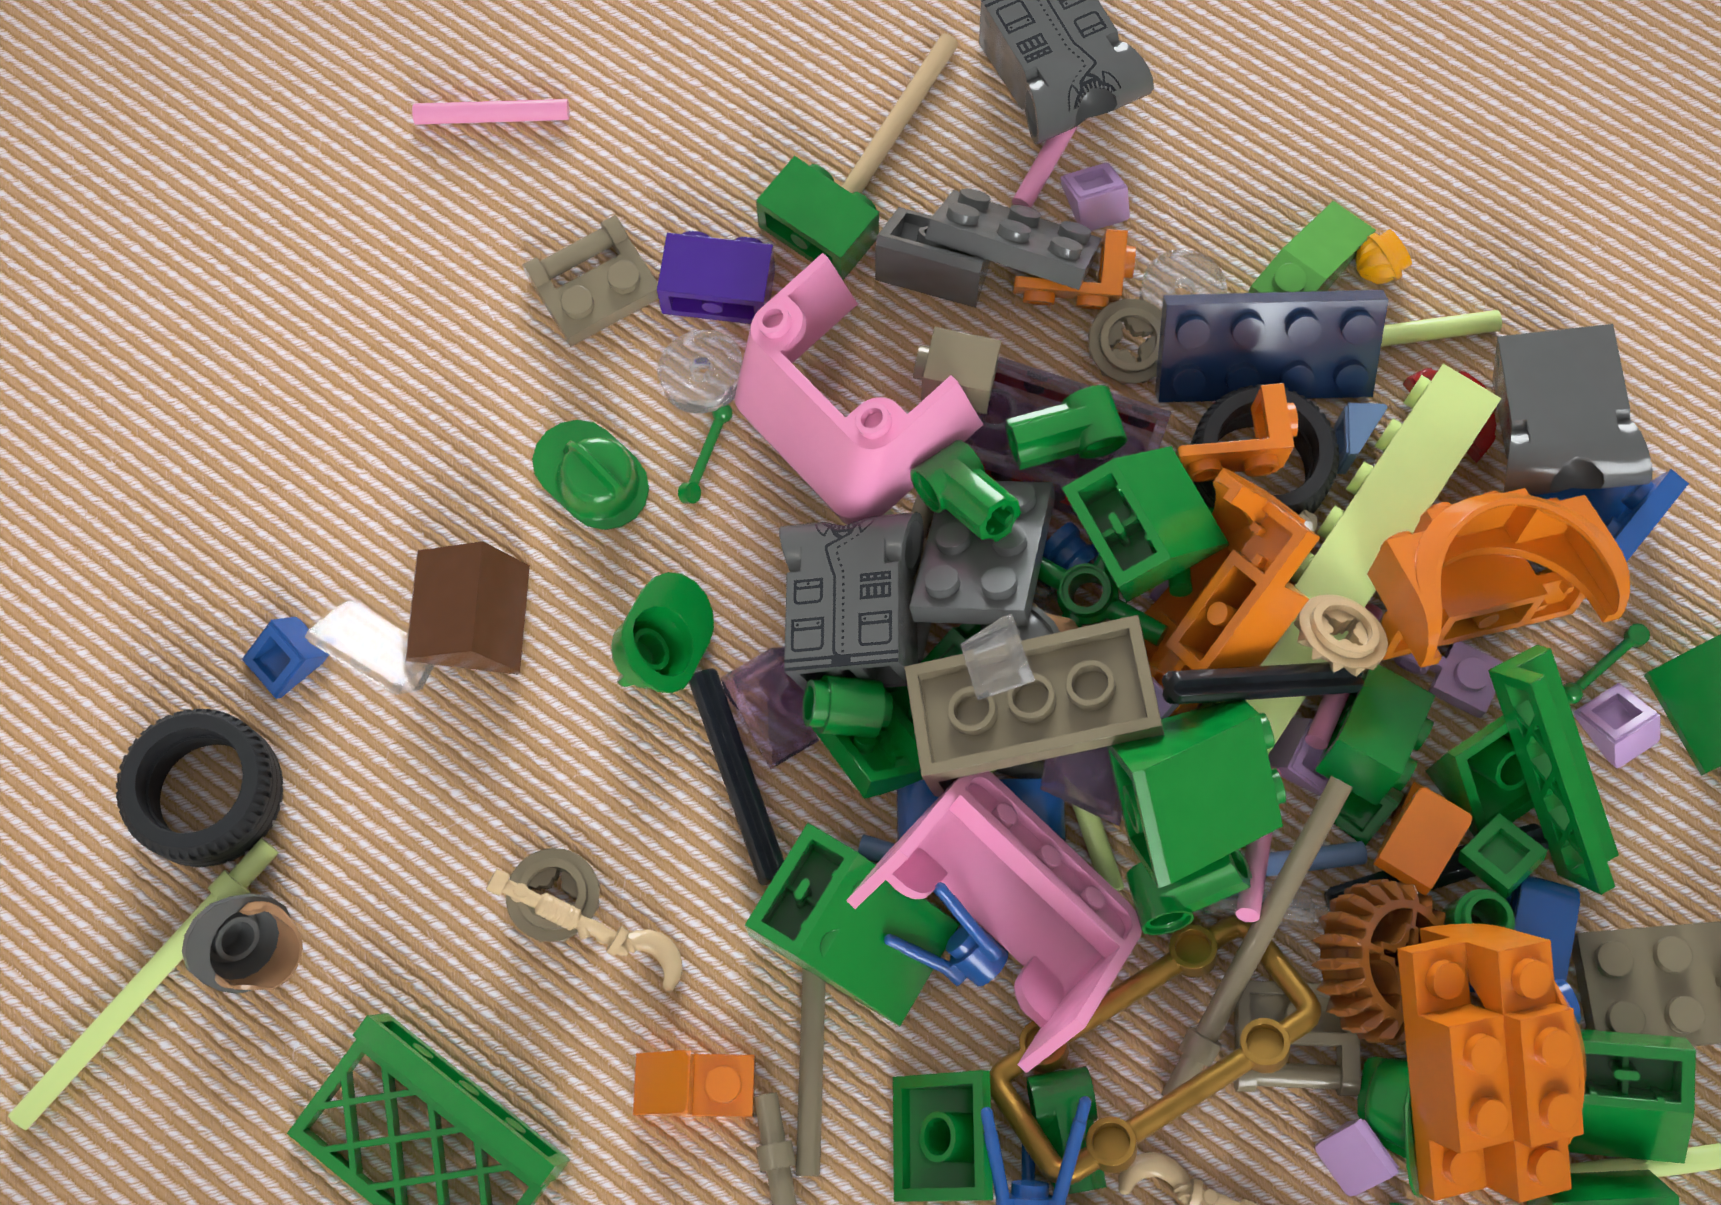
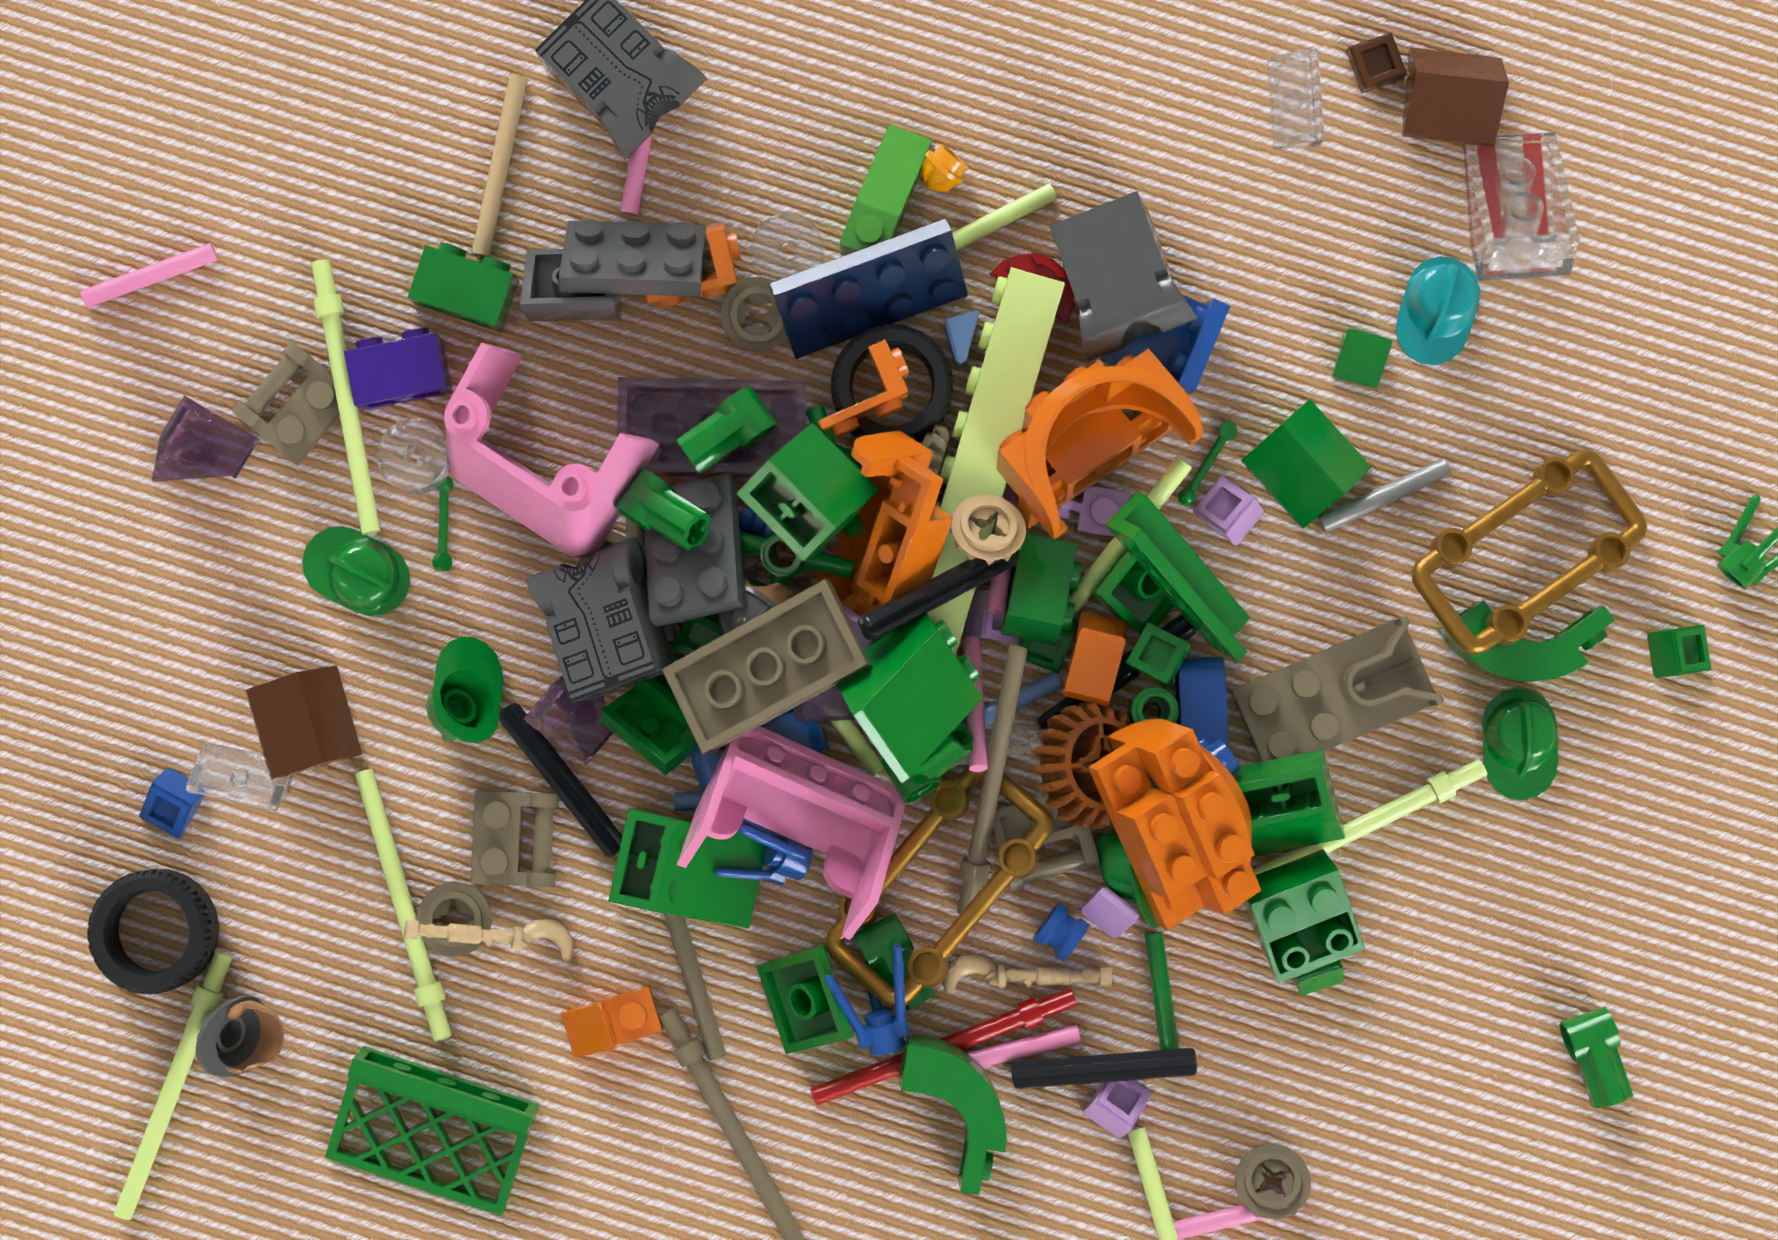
camera: 20 degrees left, 15 degrees up
(473, 284) = (200, 445): none -> clear purple slope
(490, 971) = (429, 991): none -> yellowish green bar
(640, 818) = (499, 838): none -> dark tan plate
(666, 197) = (329, 309): none -> yellowish green bar
(847, 706) = (628, 708): green brick -> none
(965, 357) = (624, 408): dark tan brick -> none
(997, 658) = (730, 646): clear slope -> none
(1097, 196) = (689, 185): lavender slope -> none
(1288, 1161) = (1061, 931): none -> blue wheel
(1490, 710) = (1115, 550): none -> yellowish green bar

